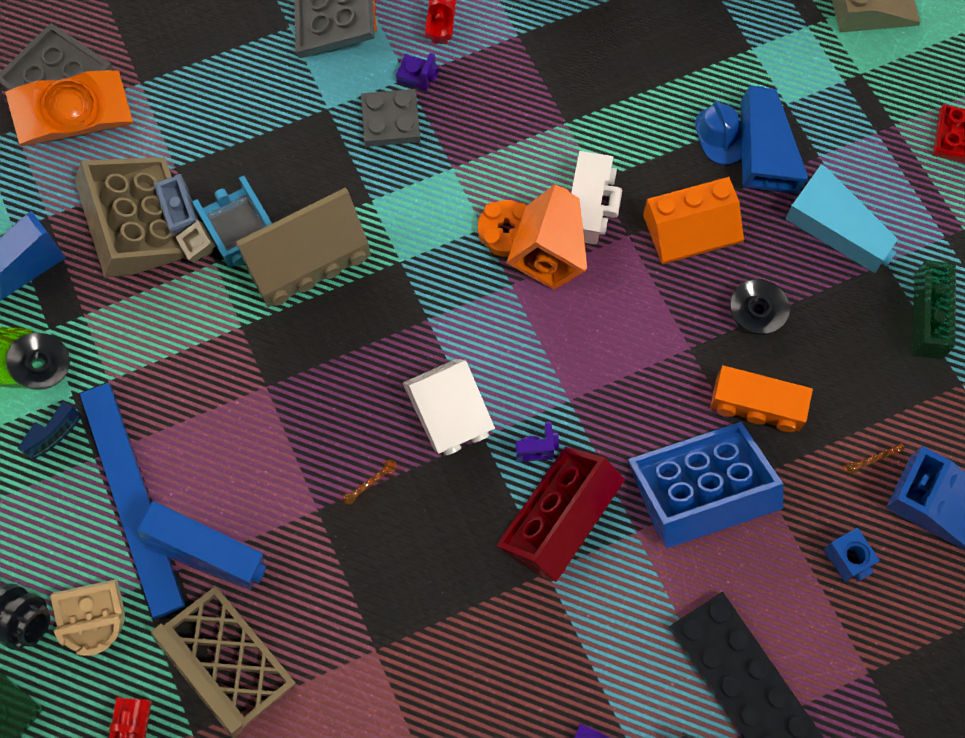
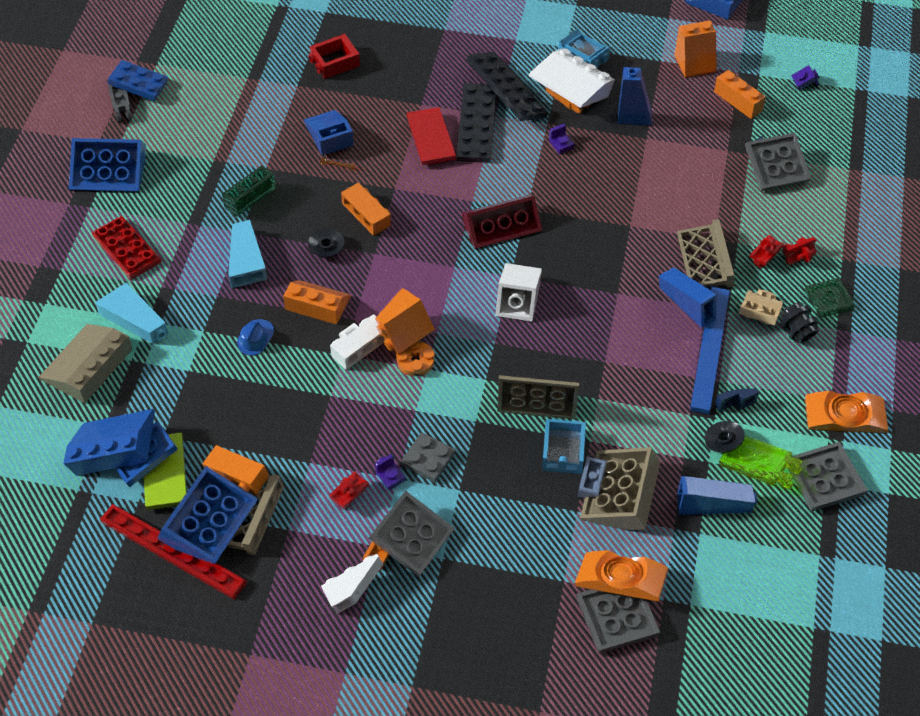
camera: 145 degrees left, 15 degrees down
(196, 241) = (594, 446): dark tan tile -> none
(389, 467) = (567, 289): clear orange hinge -> none
(536, 449) = (490, 249): dark purple bracket -> none
(706, 484) = (425, 193): blue slope -> none
(767, 144) = (241, 308): blue slope -> none
(793, 605) = (431, 136): none -> red tile
(854, 542) = (388, 136): blue brick -> none
(881, 59) = (132, 313): none -> medium azure slope

